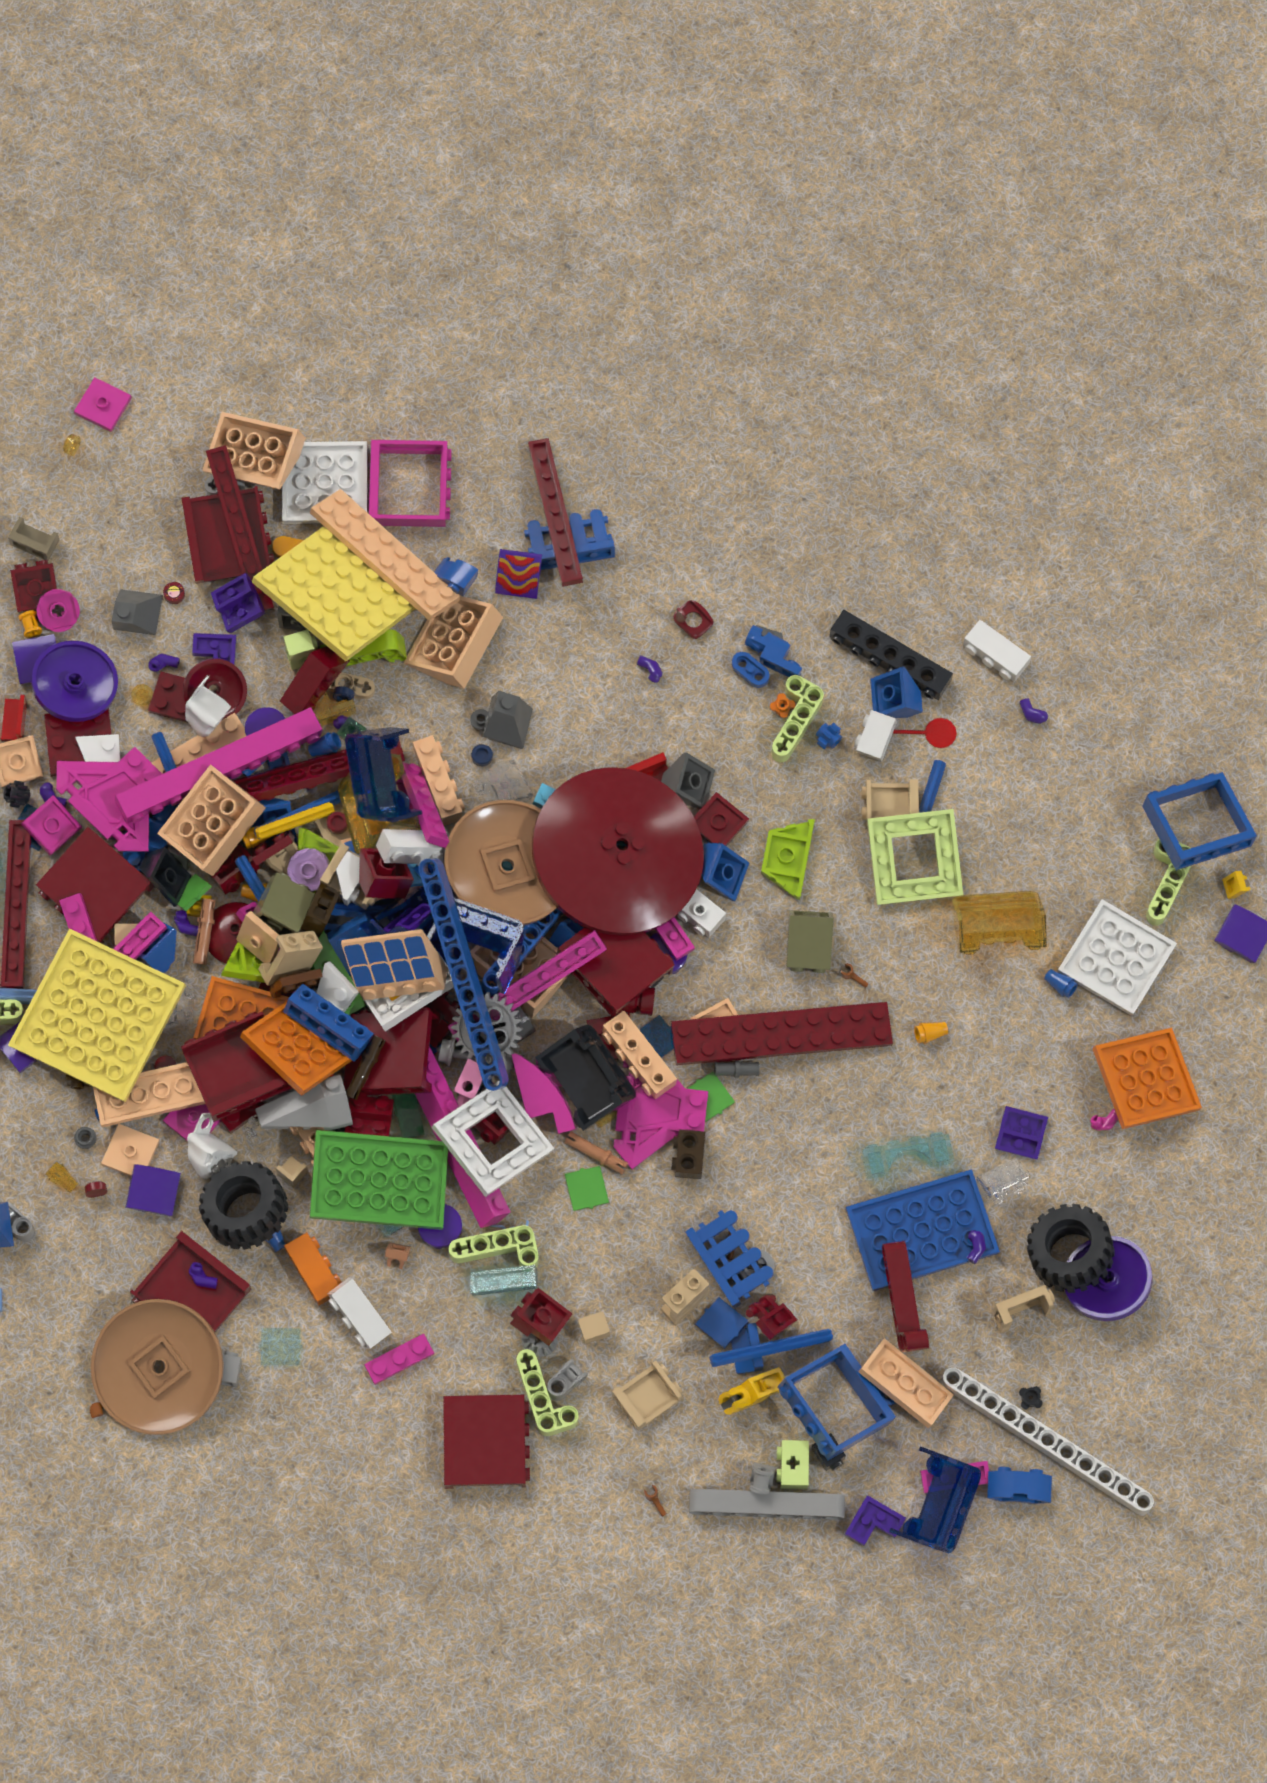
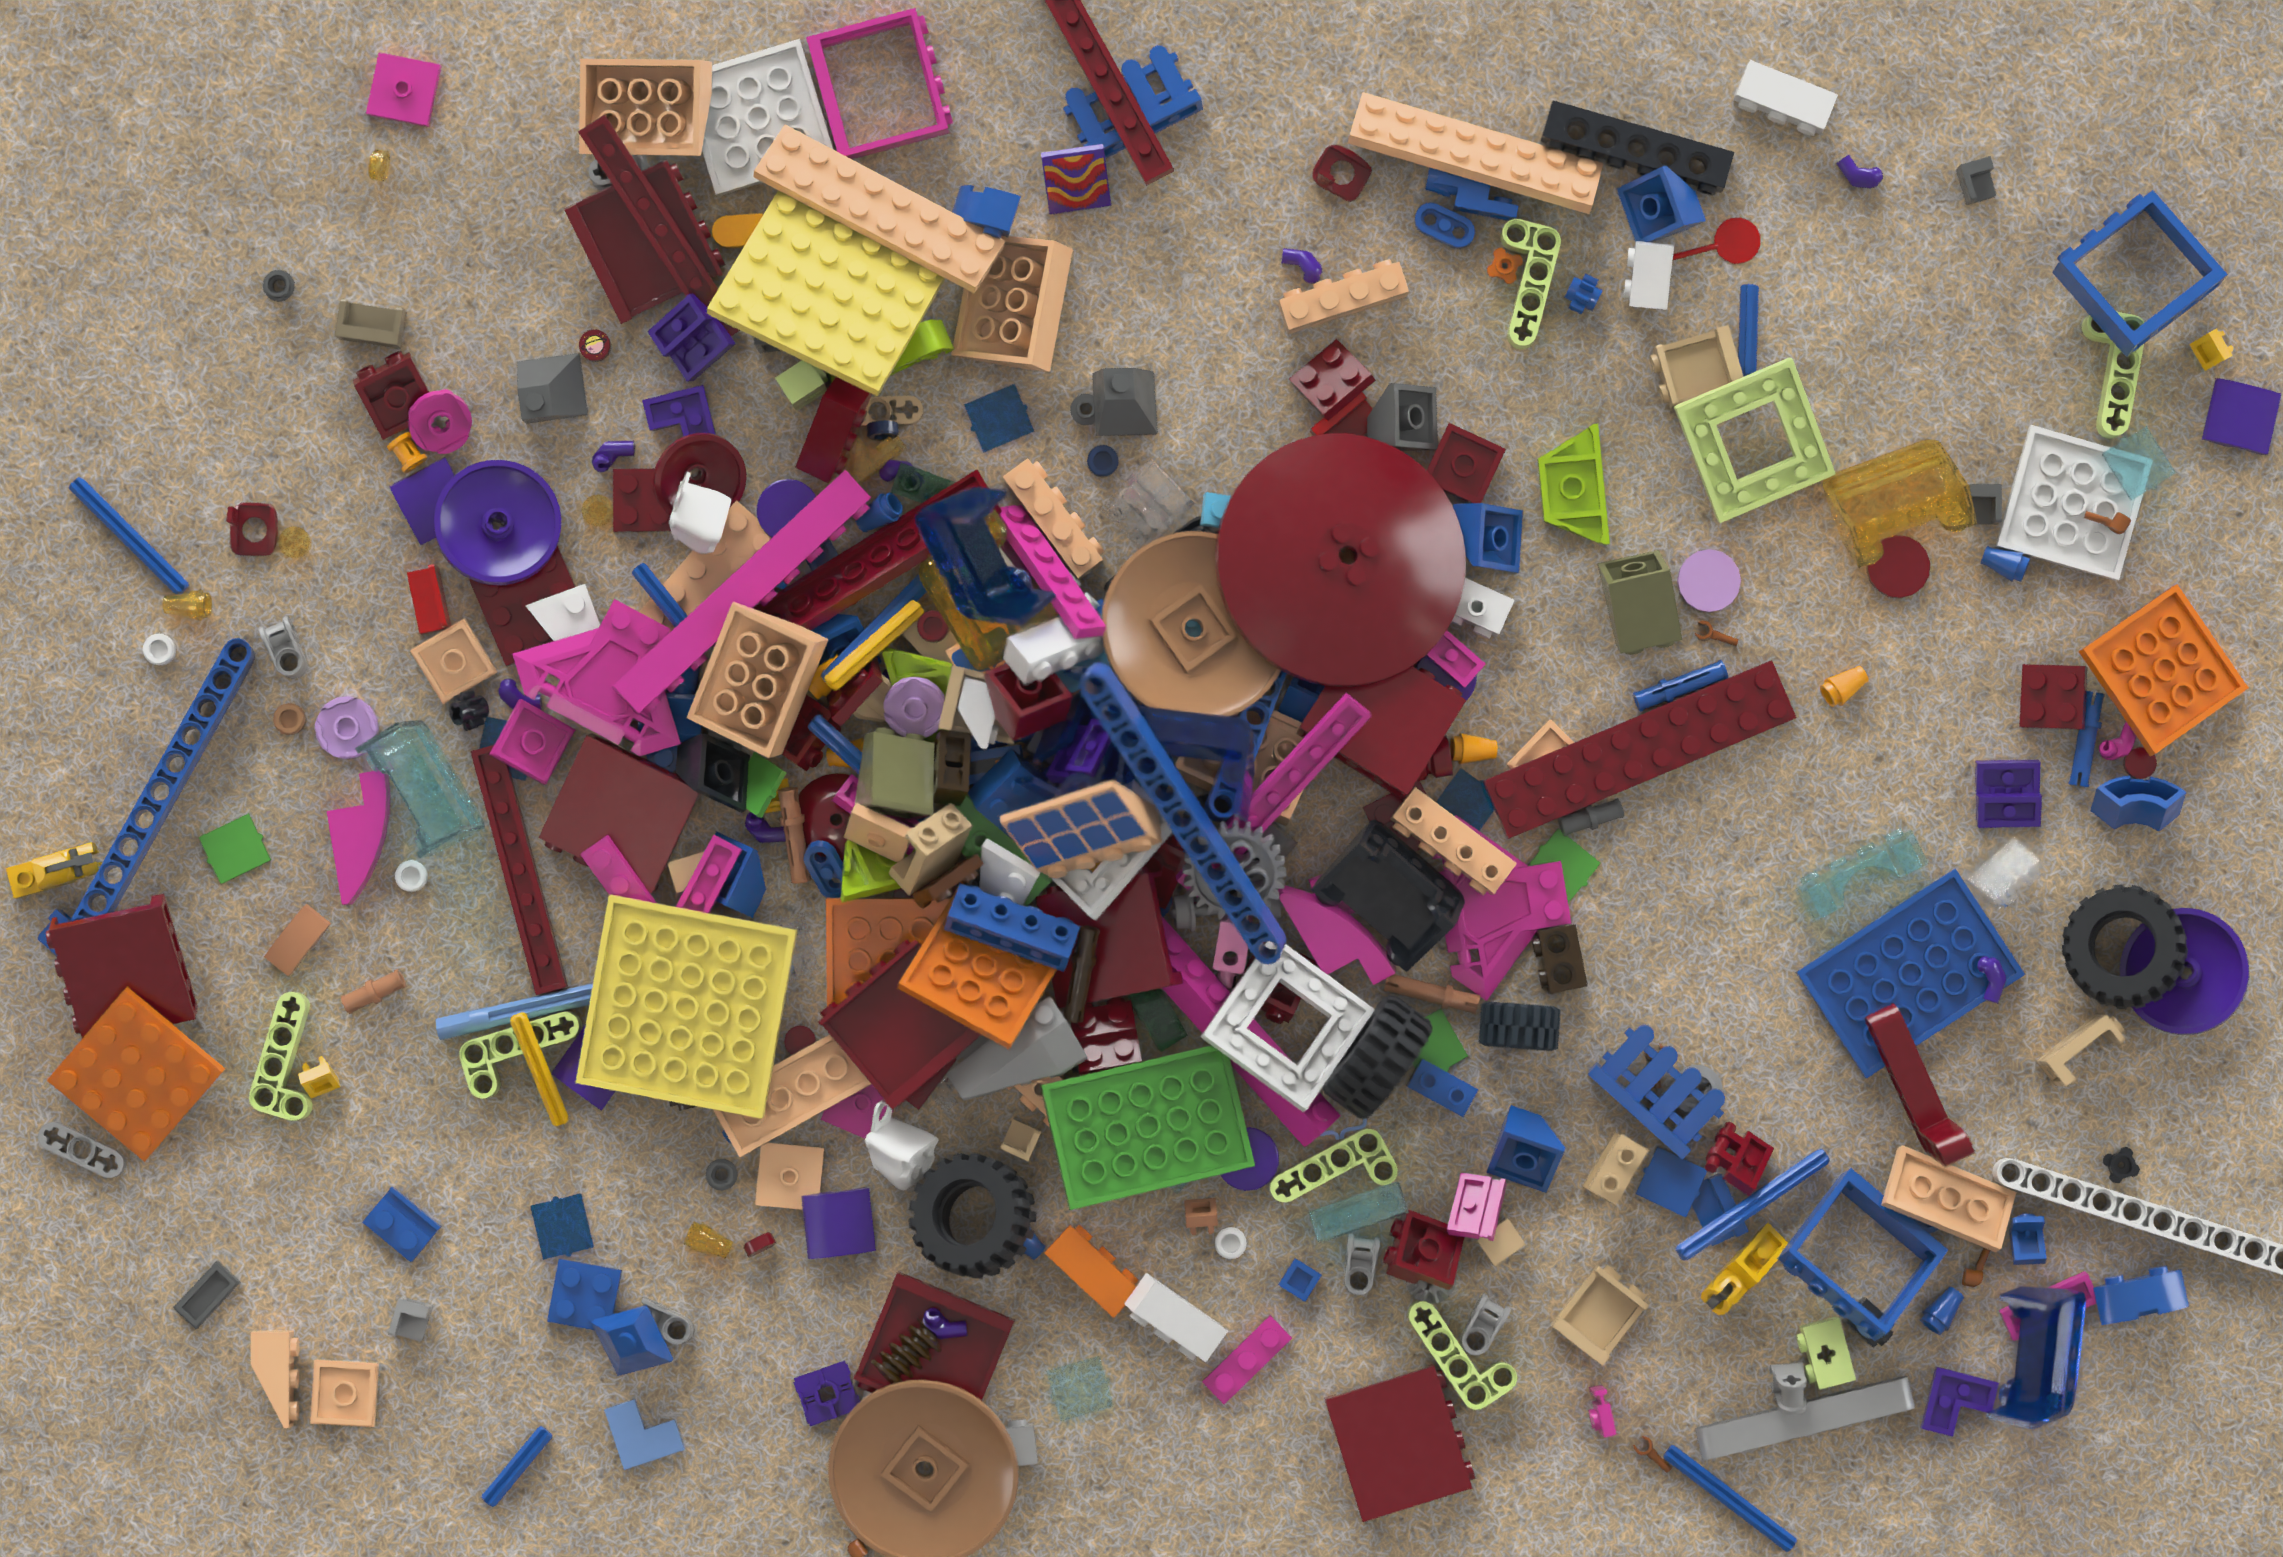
camera: 10 degrees left, 15 degrees up
(100, 1291) = (812, 1382): none -> dark purple piece
(171, 1285) = (907, 1354): none -> dark brown piece
(217, 959) = (824, 868): none -> blue plate
(411, 1279) = (1230, 1243): none -> white tile
(422, 710) = (999, 418): none -> clear blue piece
(451, 1315) = (1299, 1279): none -> blue plate
(496, 1313) = (1360, 1261): none -> light grey piece
(545, 1175) = (1378, 1057): none -> black tyre
(584, 1214) = (1442, 1087): none -> blue brick
(584, 1298) = (1476, 1206): none -> plate
(627, 1458) = (1601, 1414): none -> dark pink plate
(628, 1272) = (1526, 1150): none -> blue slope
(647, 743) = (1332, 379): none -> plate
(648, 1186) = (1519, 1026): none -> black wheel
(670, 694) = (1342, 298): none -> light nougat brick
(670, 1003) = (1471, 748): none -> light orange cone
(700, 1545) = (1730, 1498): none -> blue axle
(783, 629) = (1475, 153): none -> light nougat plate
(820, 1001) = (1678, 686): none -> blue pin
(859, 940) = (1708, 580): none -> lavender tile
(880, 1460) = (1941, 1312): none -> blue cone
(908, 1443) = (1974, 1277): none -> dark orange hand
(953, 1427) = (2027, 1239): none -> blue bracket
(988, 966) = (1901, 568): none -> dark red tile
(1056, 941) = (1987, 503): none -> dark grey panel
(1068, 1076) = (2053, 697): none -> dark red plate
(1087, 1103) = (2086, 741): none -> blue pin
(1106, 1159) = (2138, 801): none -> blue brick
(1109, 737) = (1976, 180): none -> dark grey panel
(1116, 1137) = (2139, 763): none -> dark red tile
(1141, 977) = (2117, 525): none -> dark orange hand
(1166, 942) = (2138, 463): none -> clear light blue piece

